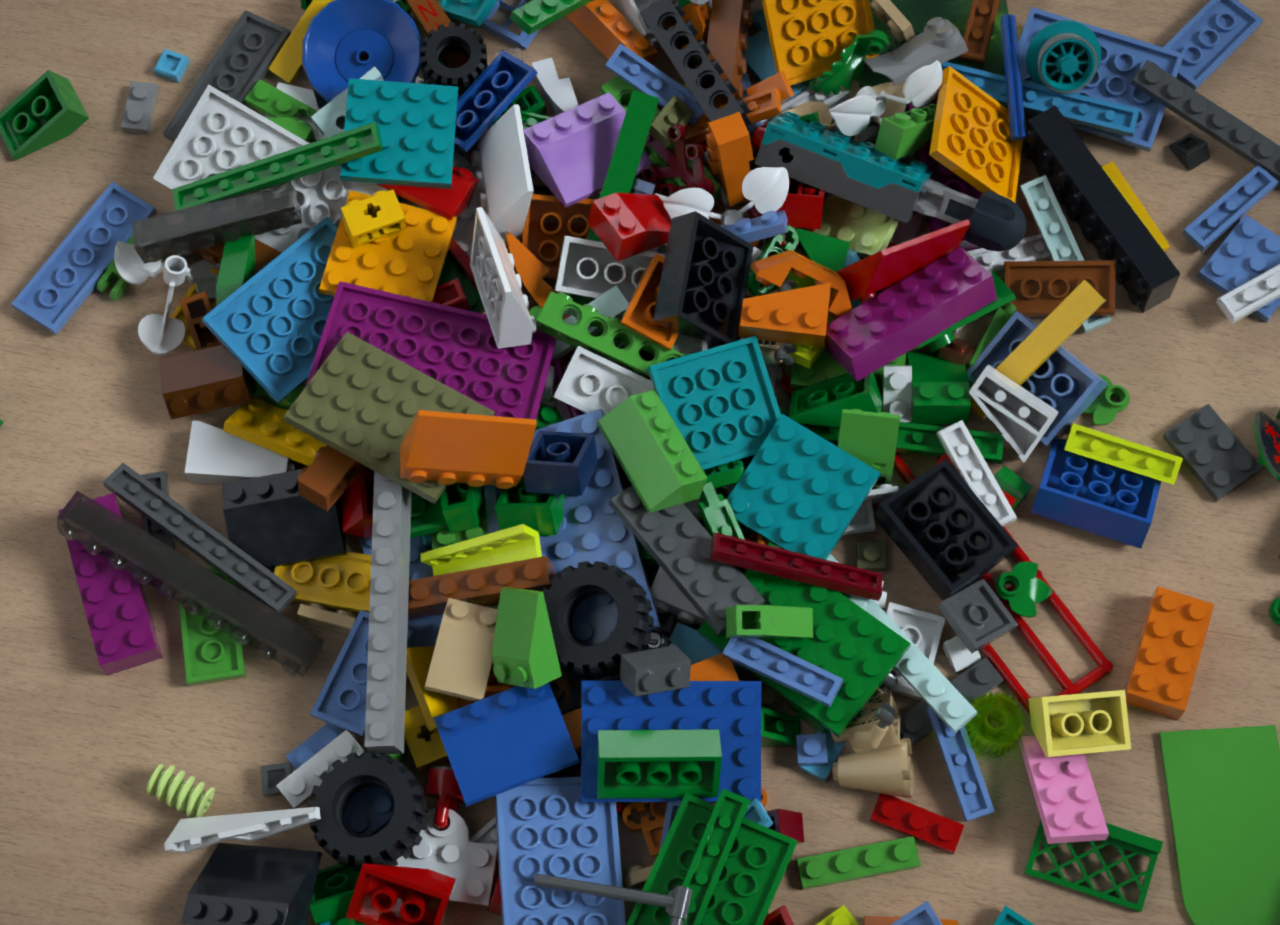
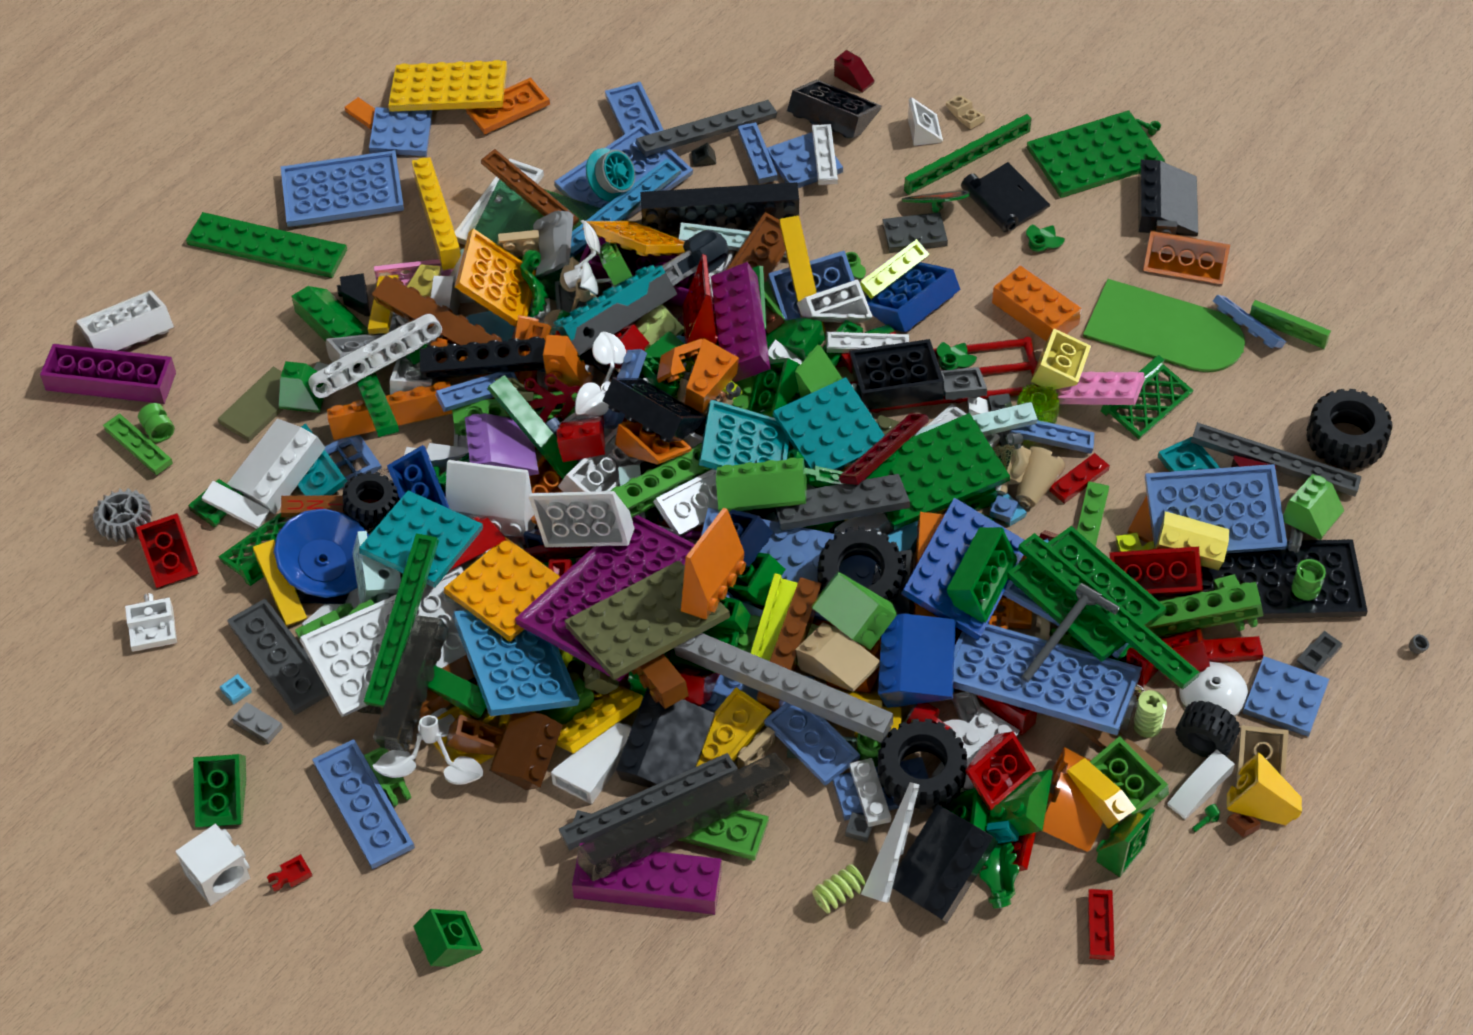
camera: 65 degrees left, 15 degrees down
(360, 224) = (481, 575): yellow brick -> none
(655, 670) = (920, 544): dark grey brick -> none
(768, 621) = (917, 474): bright green slope -> none
(784, 669) = (951, 482): medium blue plate -> none
(1012, 77) = (603, 205): blue axle -> none

